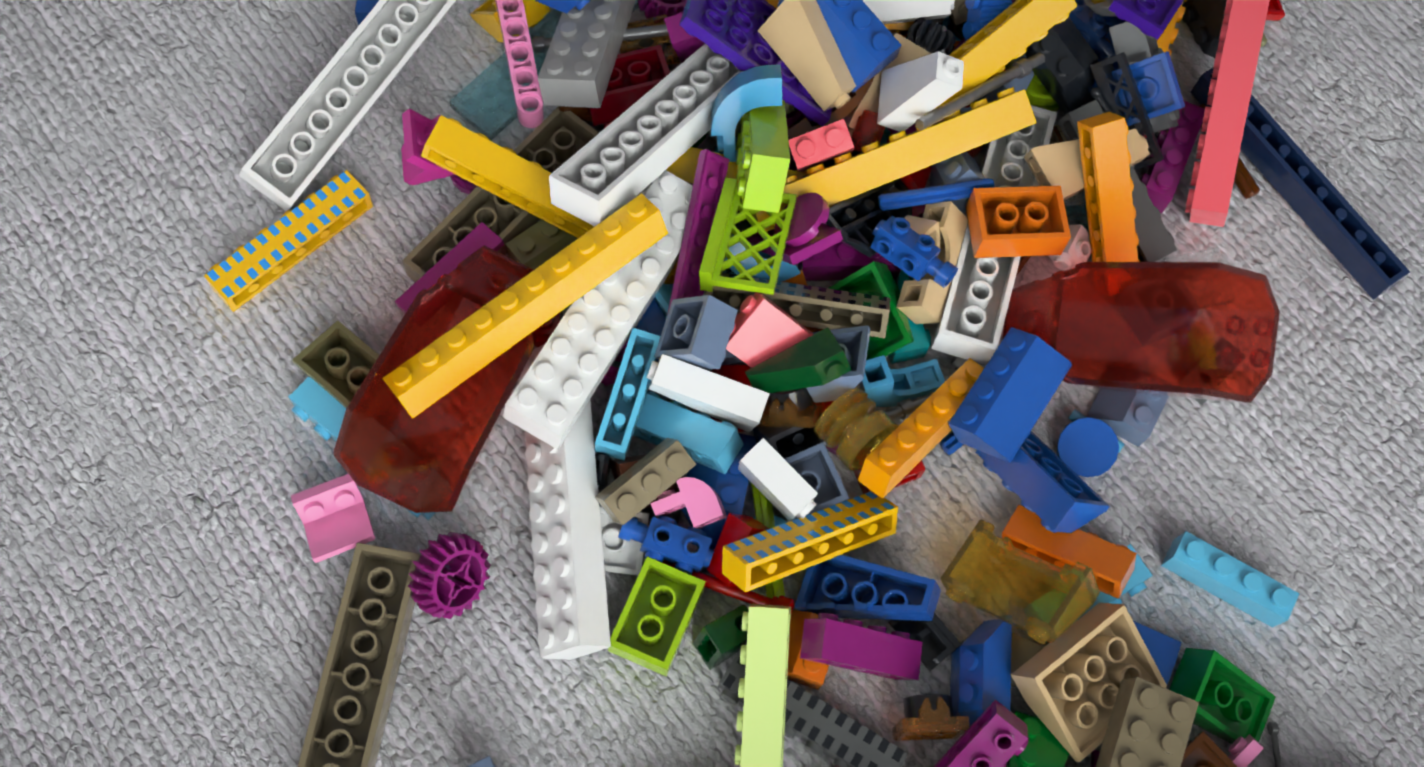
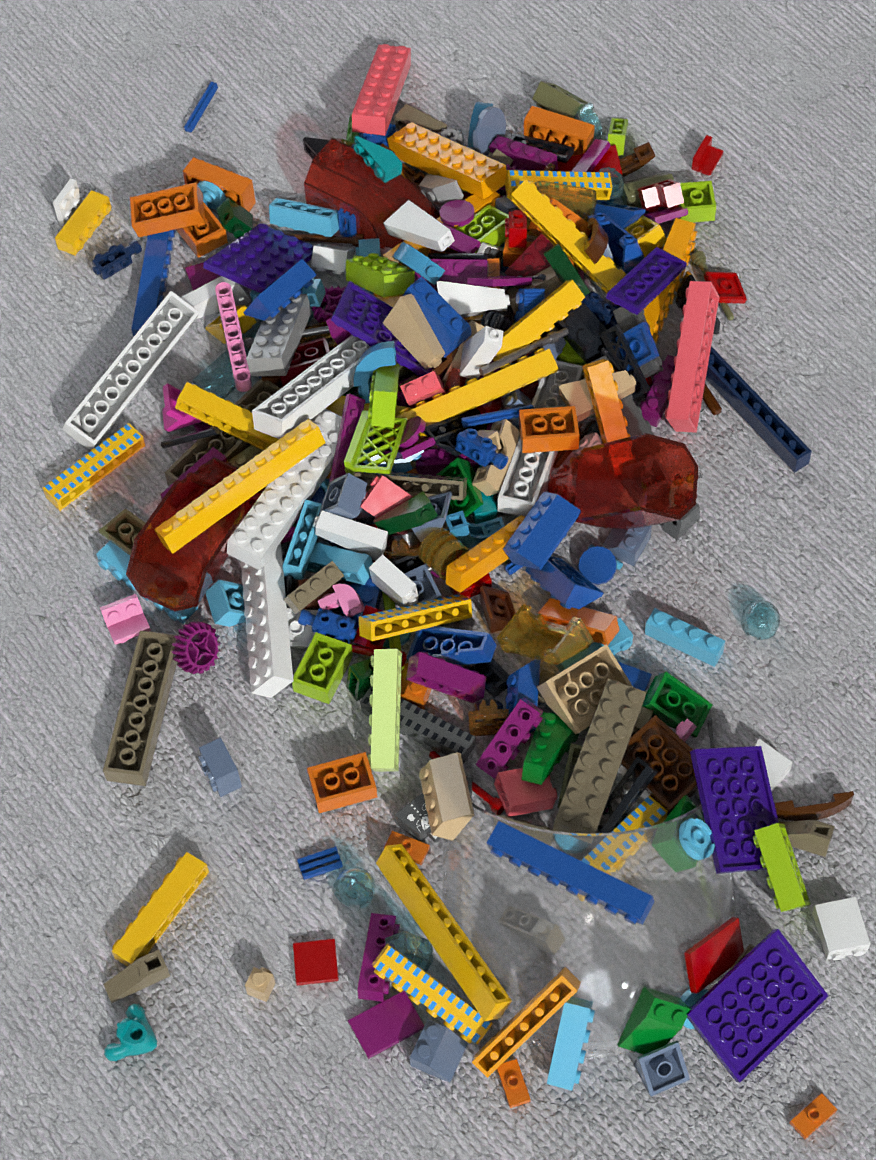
camera: 10 degrees right, 10 degrees down
(445, 201) = (190, 437): none -> black bar
(500, 491) = (226, 603): none -> medium azure slope
(933, 517) = (496, 607): none -> copper slope
(1341, 550) = (760, 619): none -> clear light blue cylinder

